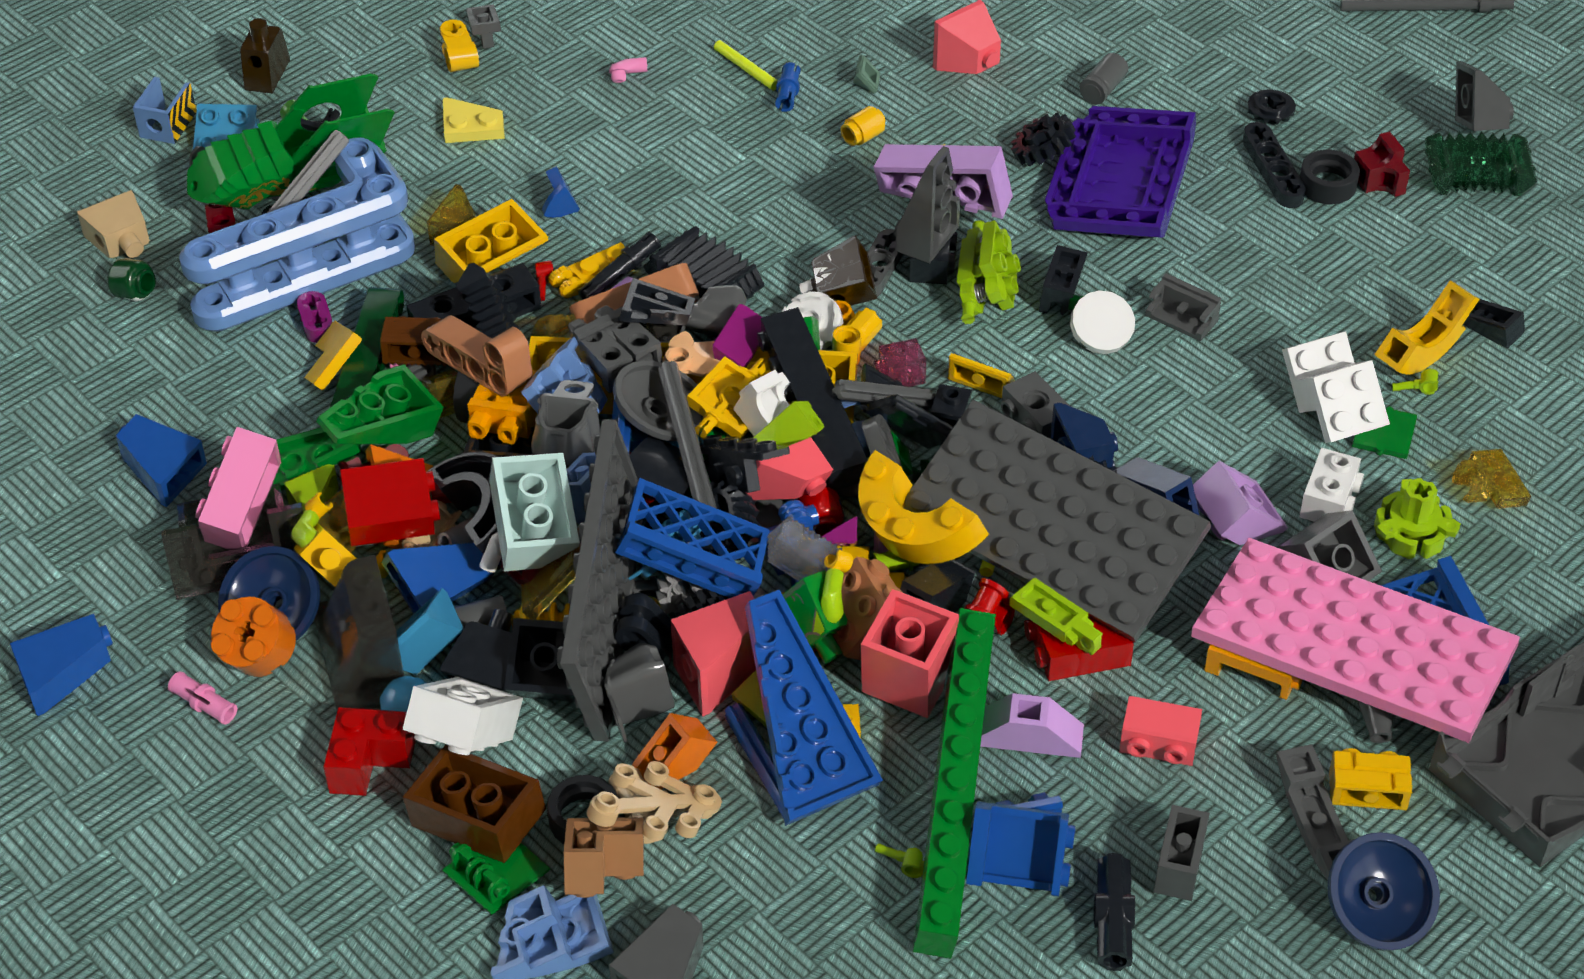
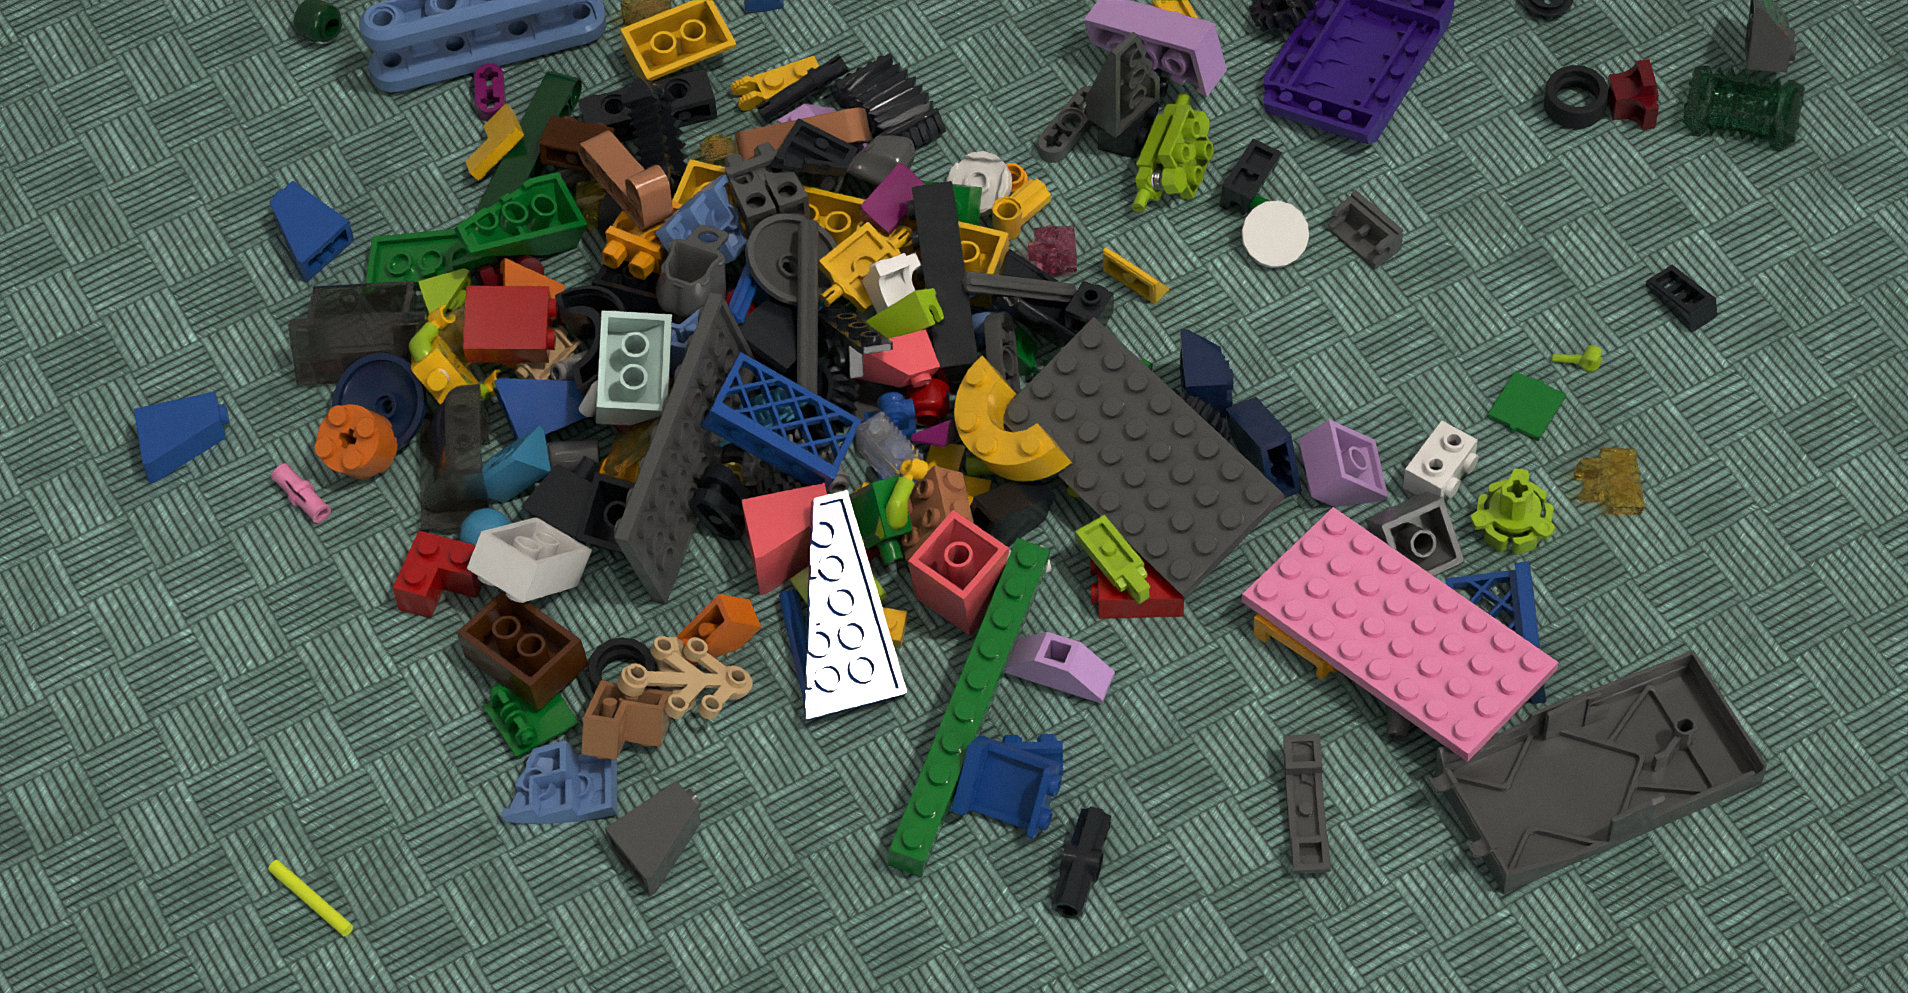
camera: 15 degrees right, 10 degrees up
(238, 489) = (370, 287): bright pink piece -> none
(543, 271) = (726, 76): red hand -> none
(637, 686) = (699, 557): dark grey piece -> none
(691, 356) = (841, 209): light nougat plate -> none
(843, 274) = (1024, 135): dark brown torso -> none
(911, 859) = (910, 774): lime hand -> none
(995, 600) = (1058, 536): red piece -> none
(1031, 402) = (1168, 308): dark grey brick -> none
(1160, 730) = (1184, 691): coral hinge -> none
(1181, 852) = (1159, 818): dark grey brick -> none
(1268, 165) = (1524, 70): black beam -> none
(1335, 387) = (1484, 352): white bracket -> none
(1370, 779) = (1367, 777): yellow brick -> none
(1403, 887) = (1359, 898): dark blue dish -> none
(1433, 336) = (1606, 312): yellow arch -> none

